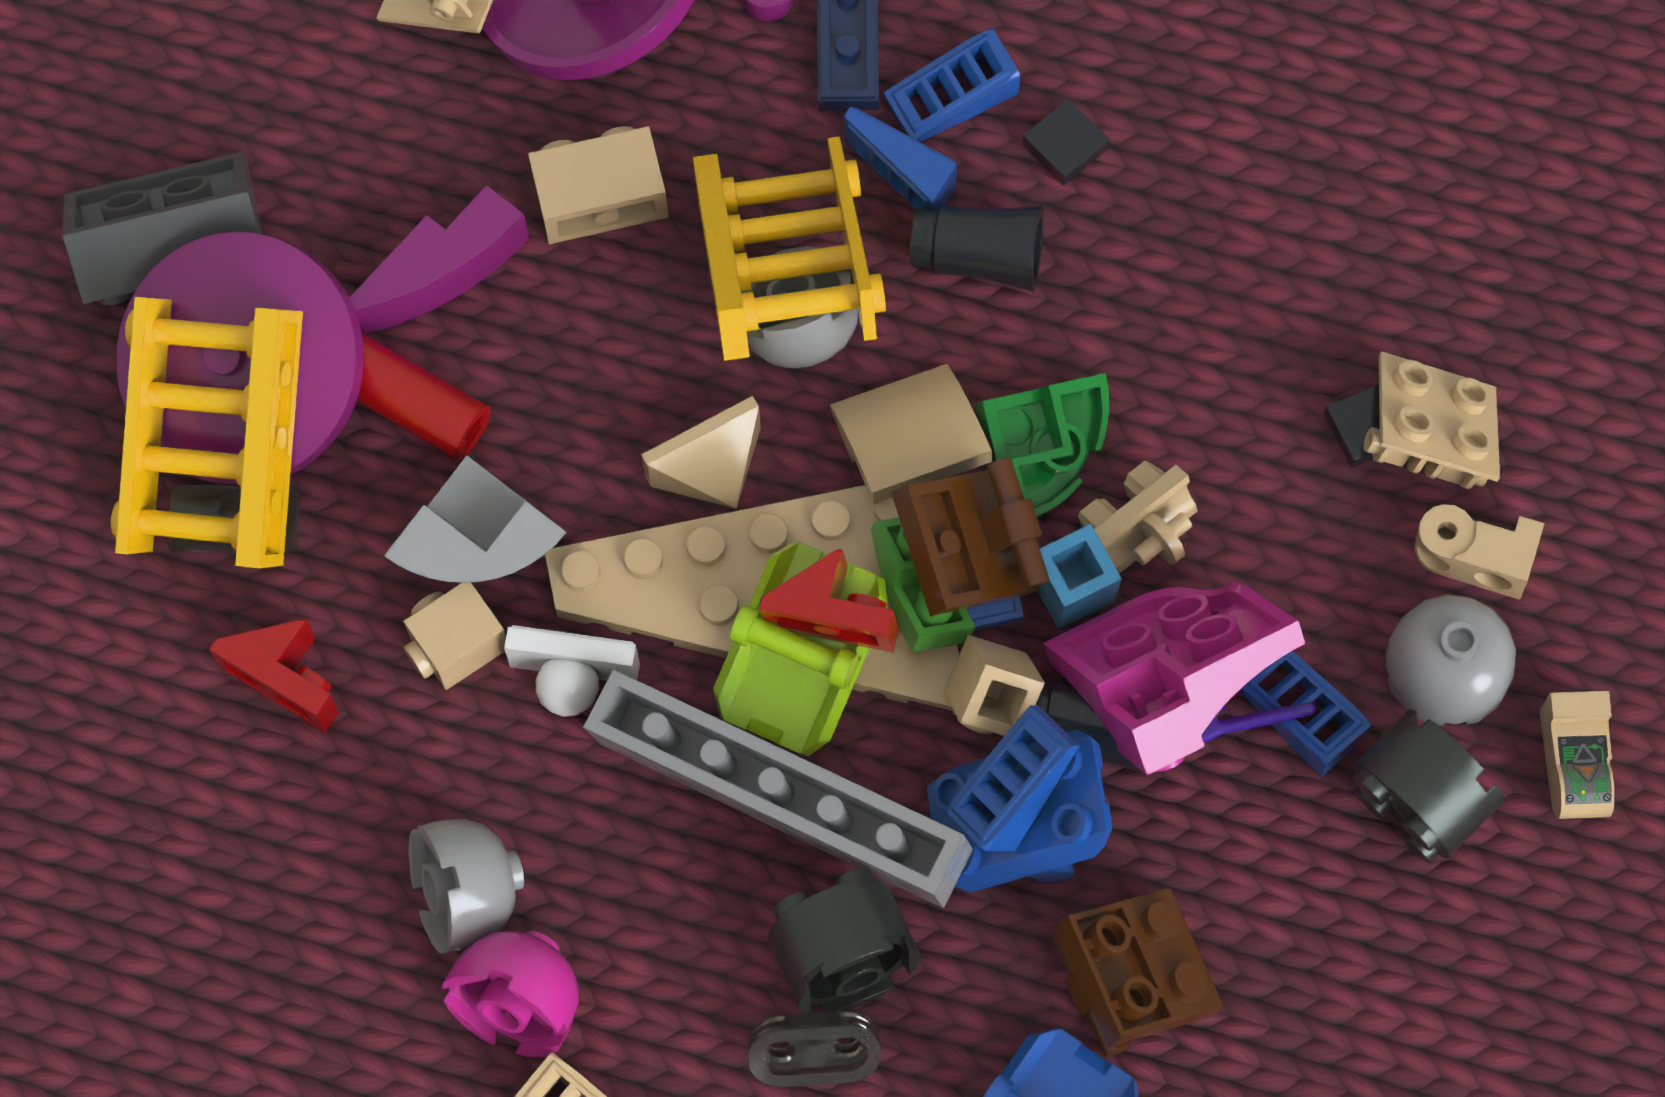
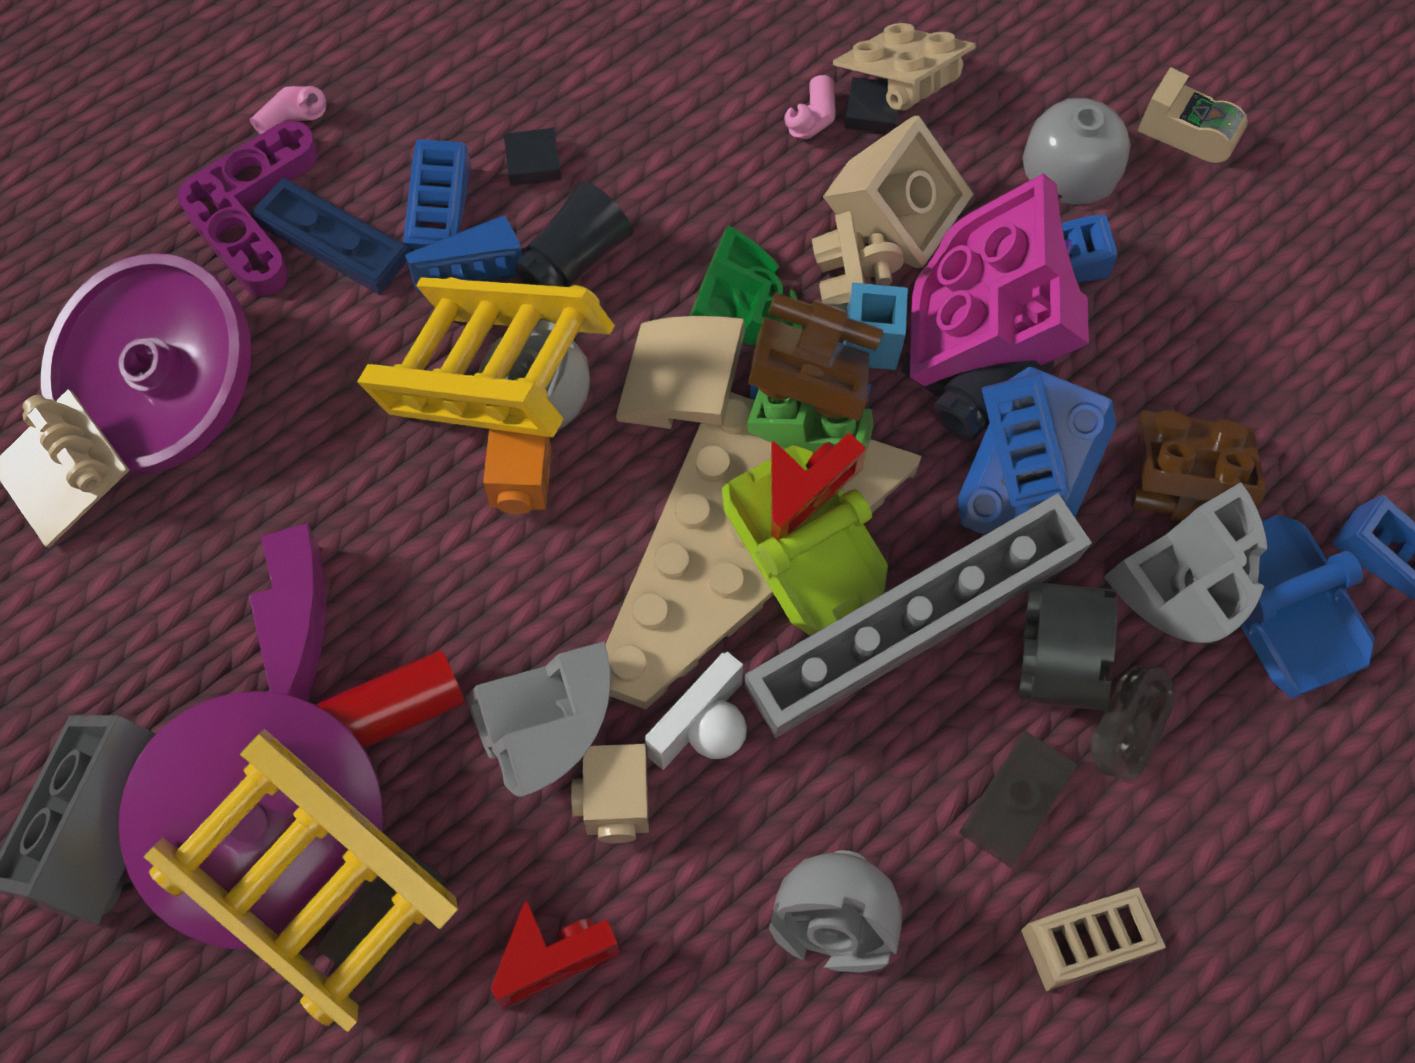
camera: 60 degrees left, 5 degrees down
(516, 988) = (957, 918): dark pink cylinder -> none
(598, 183) = (320, 464): tan brick -> none
(676, 988) = (1018, 799): none -> clear smoke plate
(697, 361) = (517, 471): none -> orange brick
(708, 458) = (603, 519): tan slope -> none
(992, 686) = (932, 422): tan brick -> none
(1002, 1021) = (1200, 574): none -> light grey brick
(1262, 516) = (902, 191): none -> tan slope
(1314, 378) = (817, 114): none -> bright pink arm
(1425, 785) = (1173, 205): pearl dark grey brick -> none
(1477, 551) = (1013, 92): tan leg -> none

